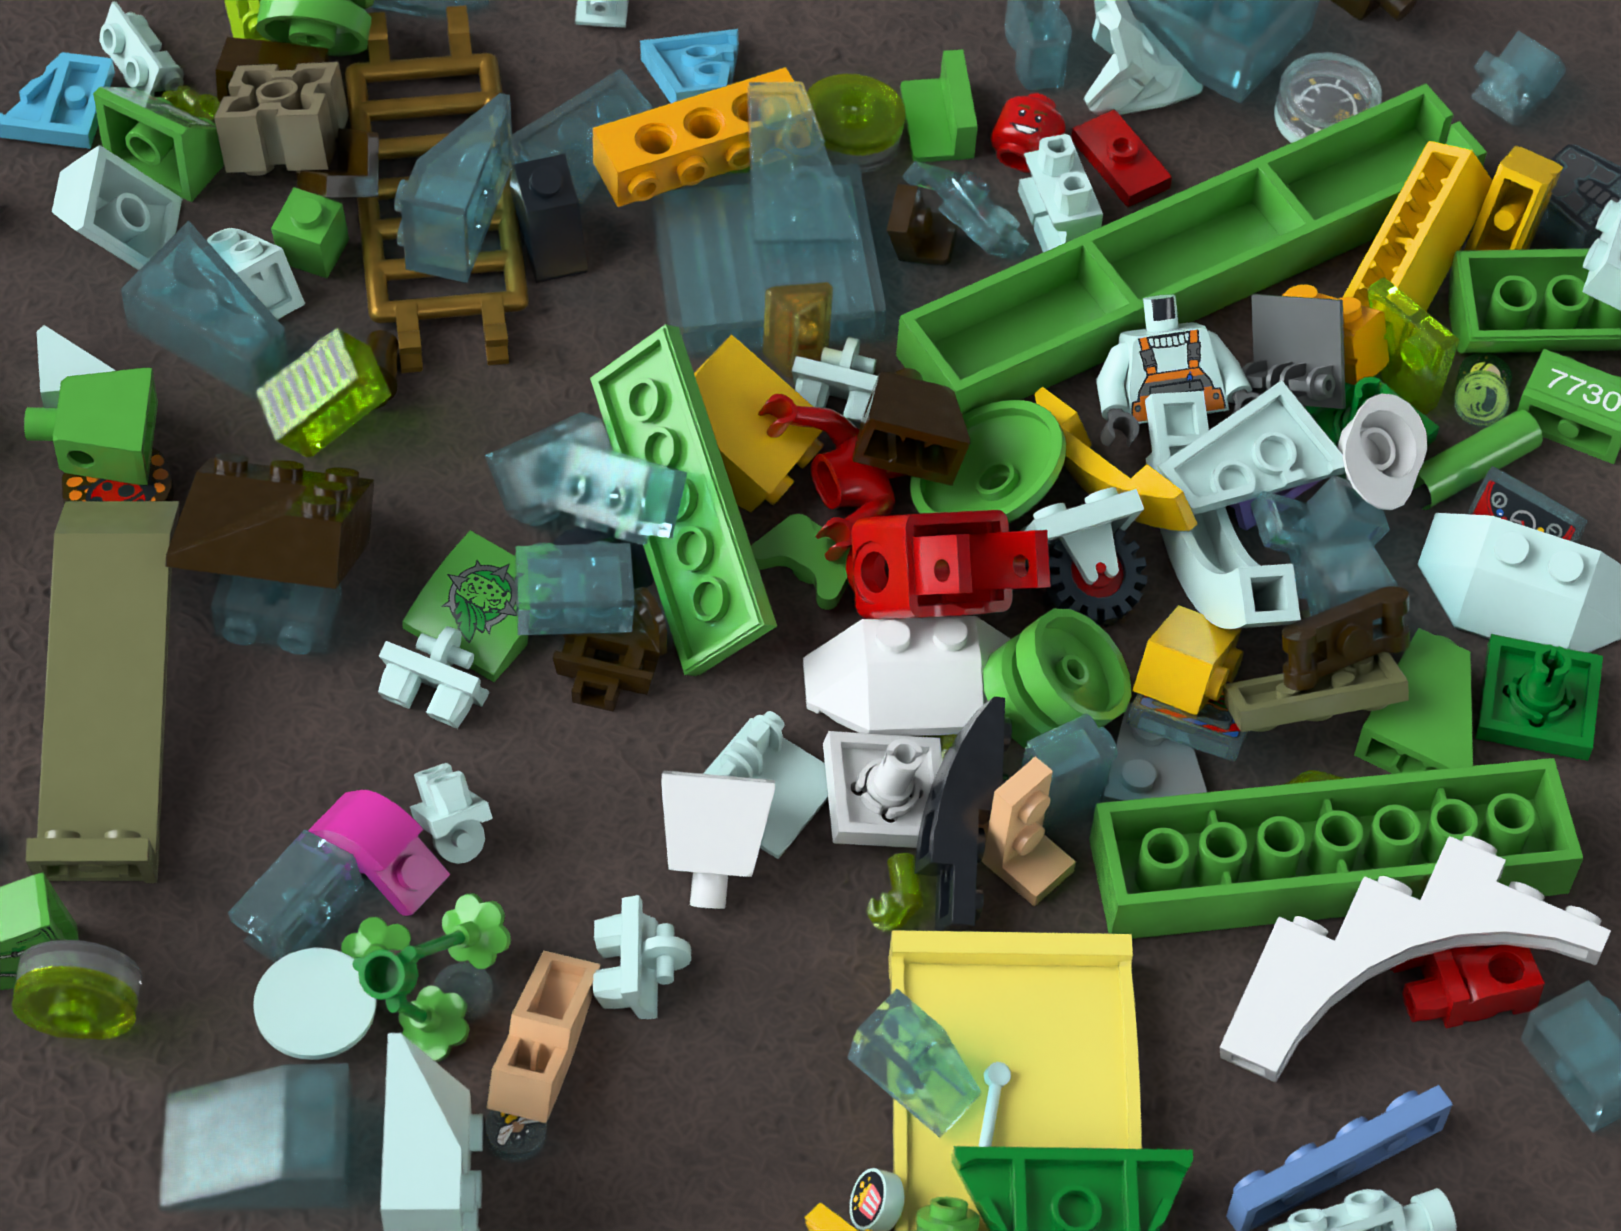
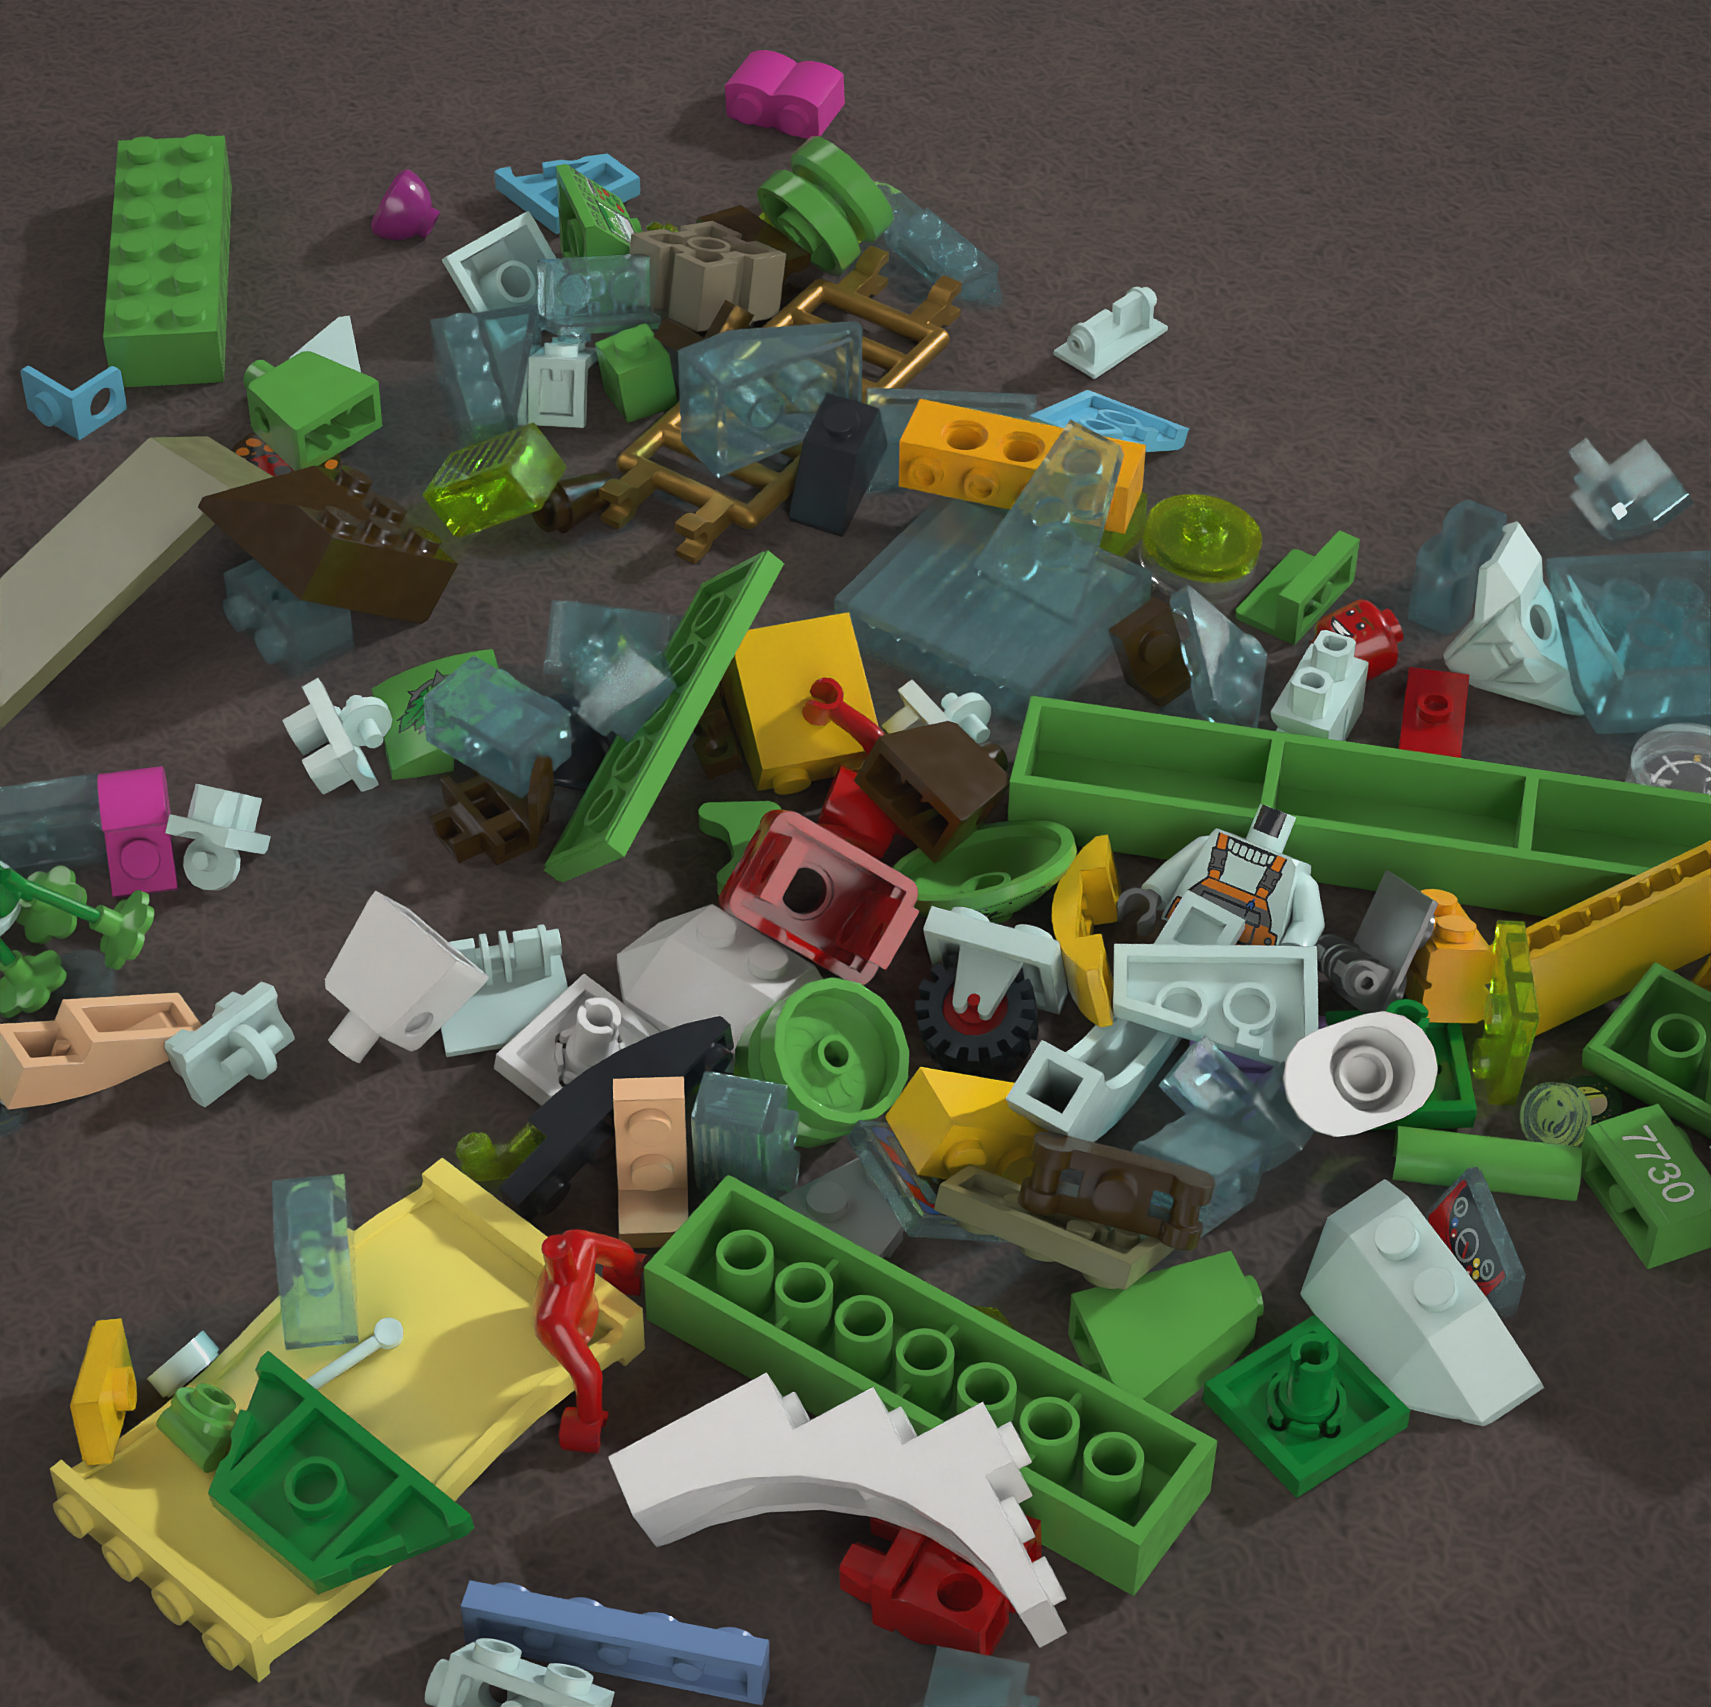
camera: 45 degrees right, 10 degrees down
(138, 52) = (675, 189): light aqua hinge -> none
(233, 190) = (594, 295): none -> clear light blue bracket
(796, 323) = (945, 650): clear yellow slope -> none
(1109, 976) = (567, 1316): none -> red piece

